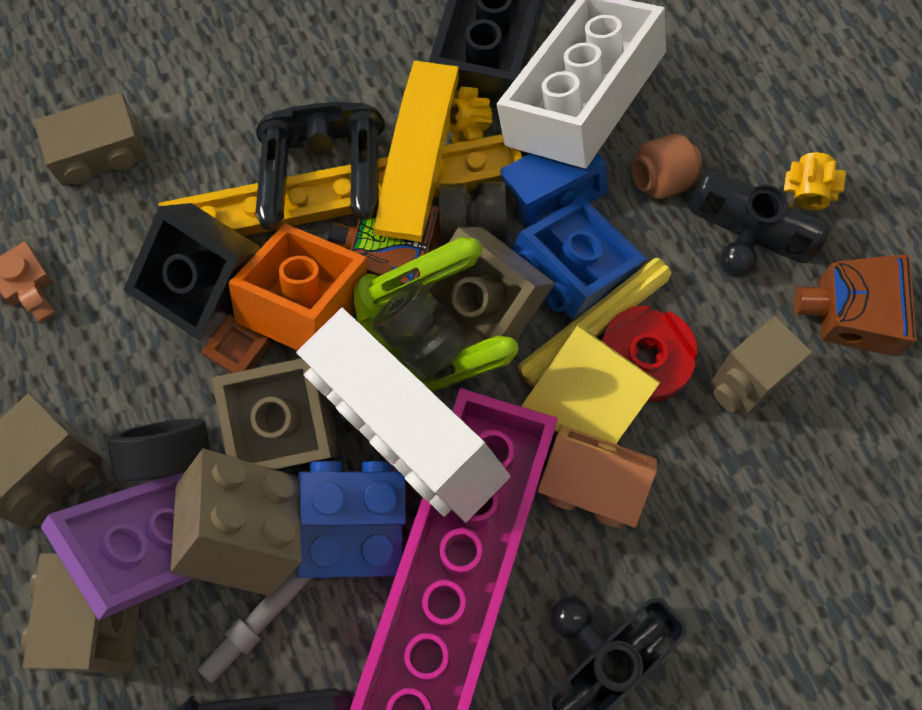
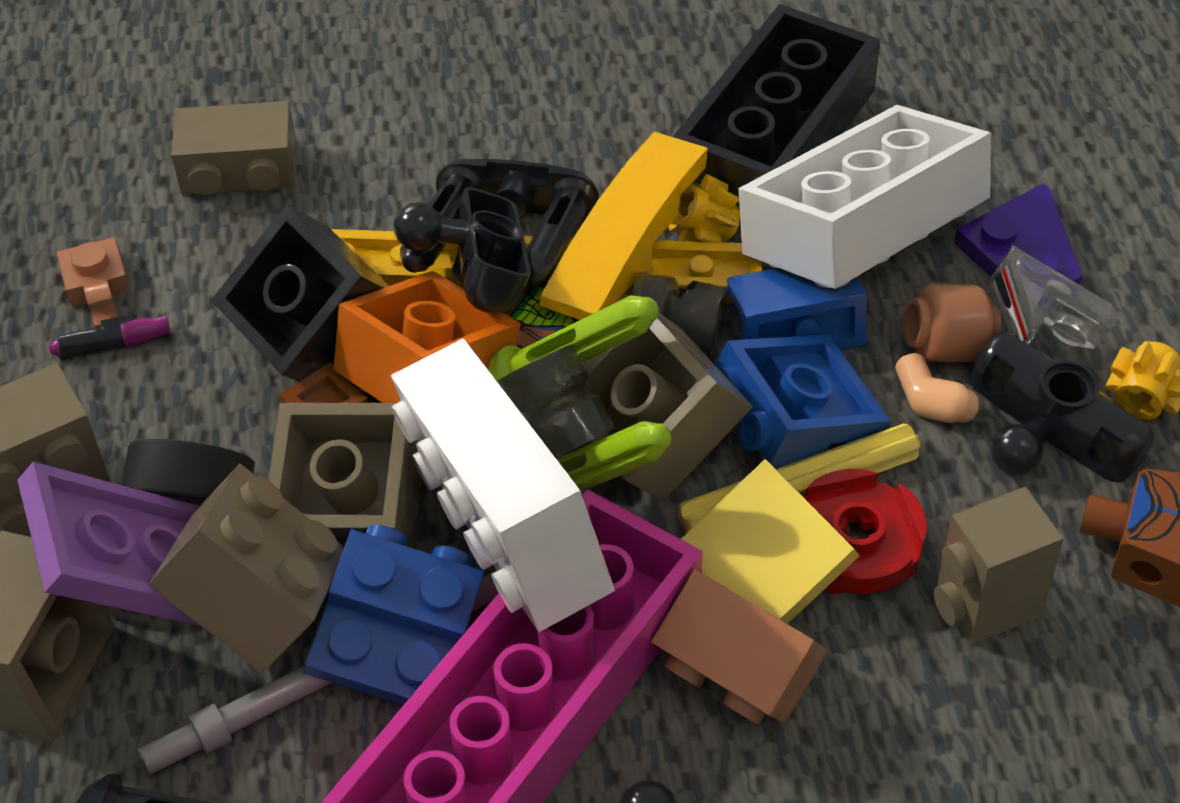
camera: 15 degrees right, 20 degrees down
(53, 325) = (112, 334): none -> piece
(323, 197) = (489, 244): none -> black piece
(667, 229) = (932, 396): none -> light nougat arm
(697, 86) = (1024, 222): none -> dark purple wing
(725, 135) = (1037, 295): none -> clear slope

